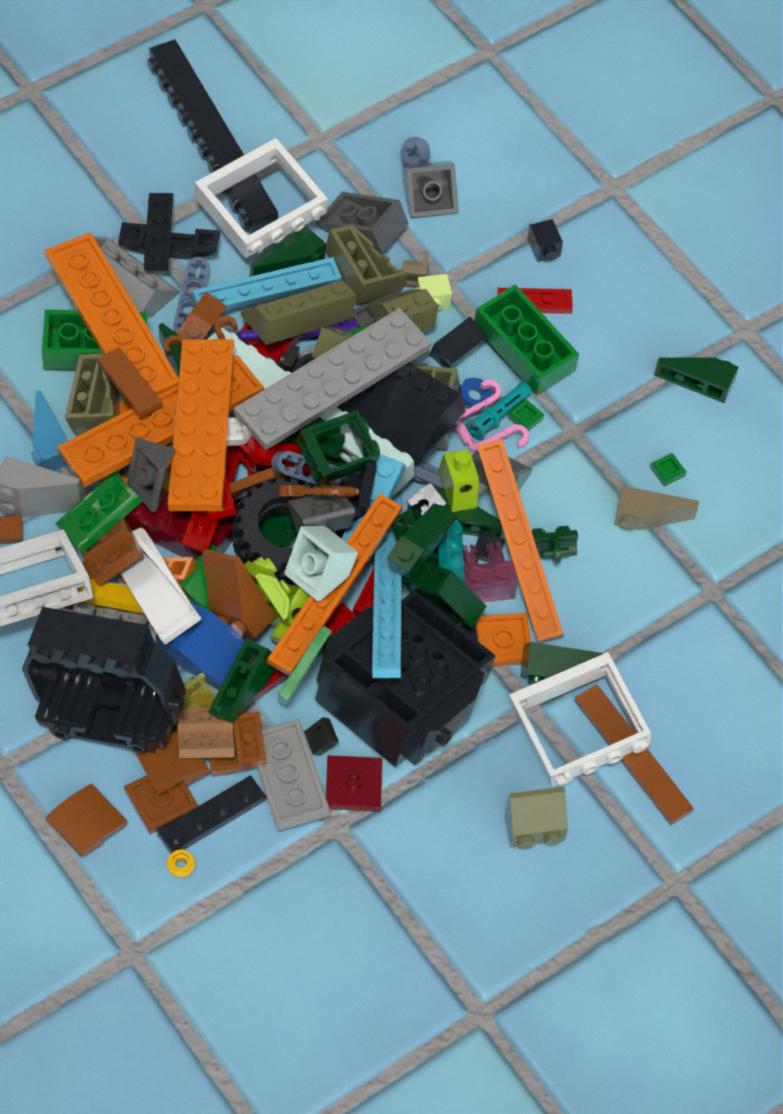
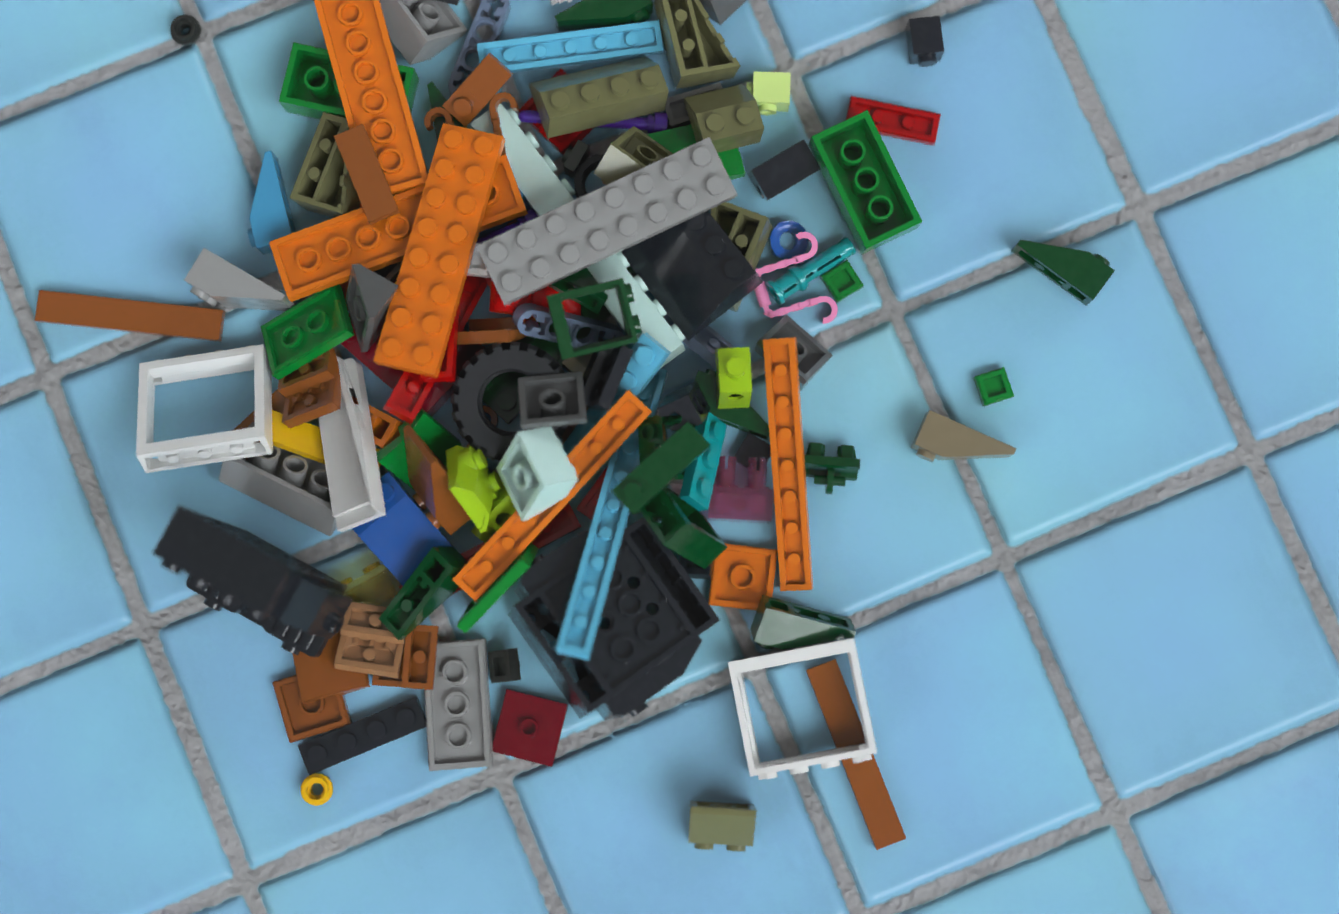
camera: 20 degrees right, 25 degrees up
(86, 820) = (223, 716): dark orange slope -> none
(298, 490) = (533, 370): dark orange piece -> none
(414, 270) = (755, 54): dark tan panel -> none

